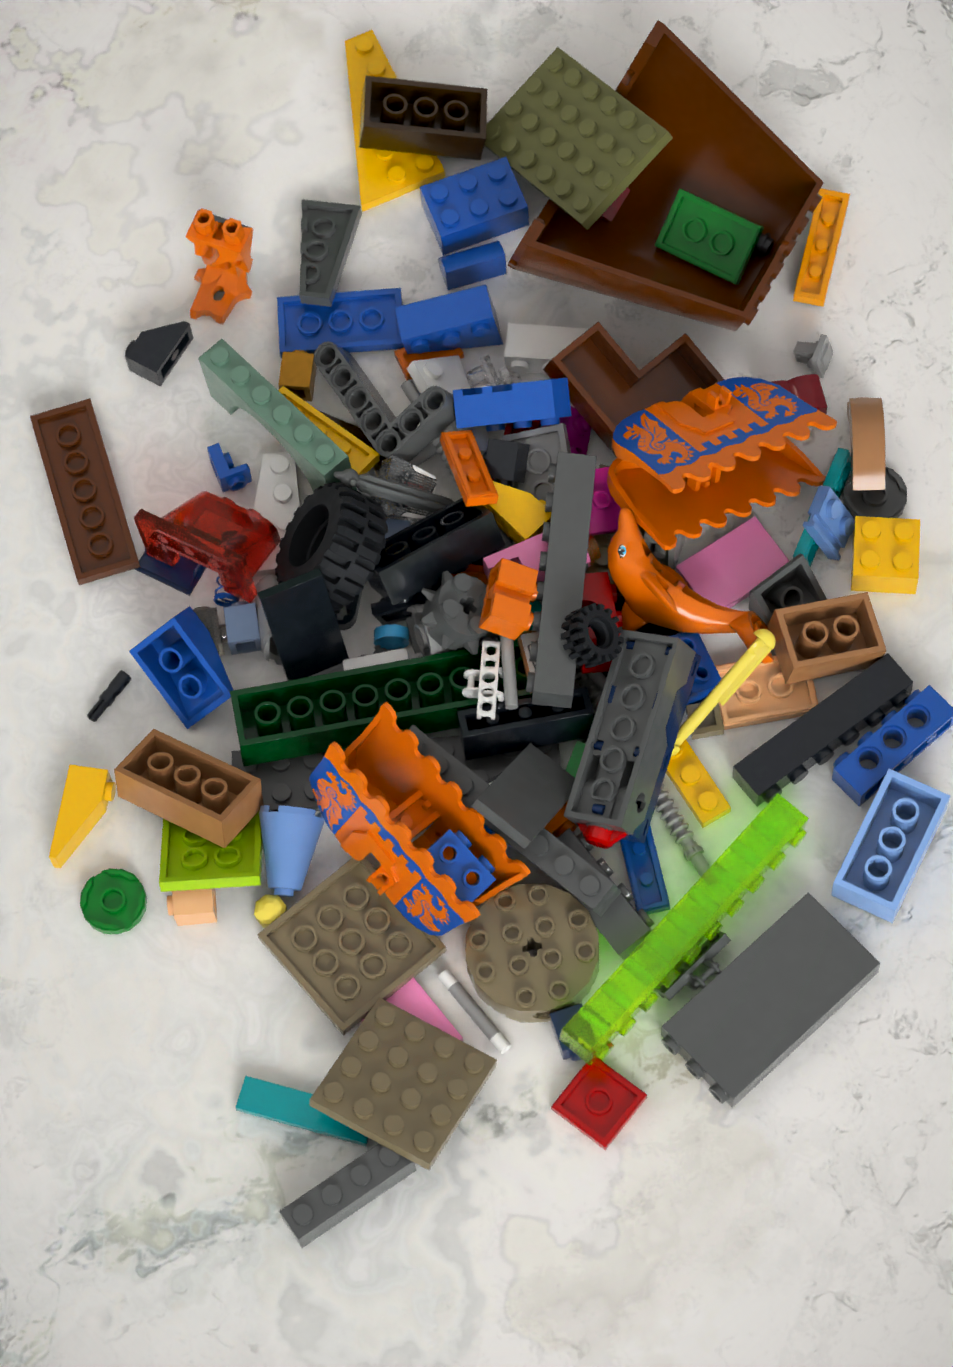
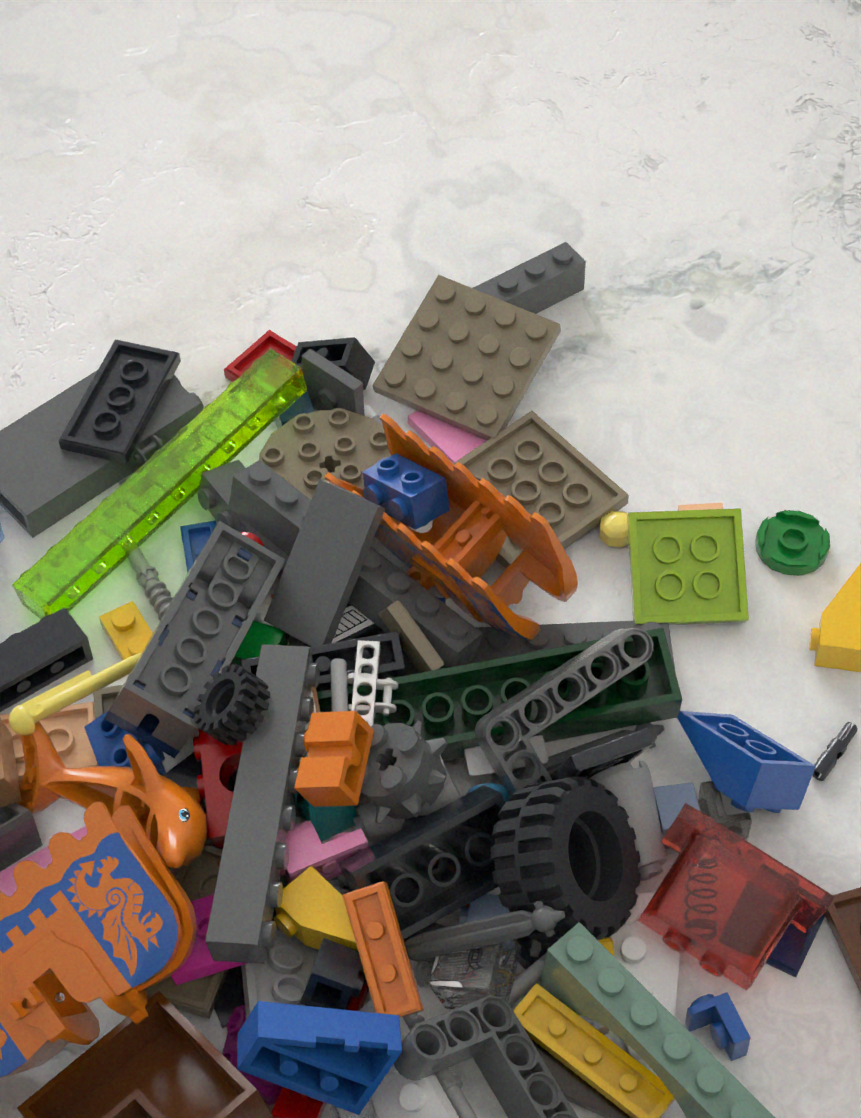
camera: 175 degrees right, 15 degrees down
(189, 788) = (720, 614): medium nougat brick -> none
(288, 845) = (604, 580): medium blue cone -> none
(291, 1108) = (589, 368): teal tile -> none
(365, 652) = (552, 707): none -> dark grey beam
(453, 742) = (411, 637): none -> dark tan tile
(533, 1040) = (330, 385): none -> dark grey plate
(537, 1087) = (342, 352): none -> black slope
(738, 1020) = (120, 401): none -> black tile

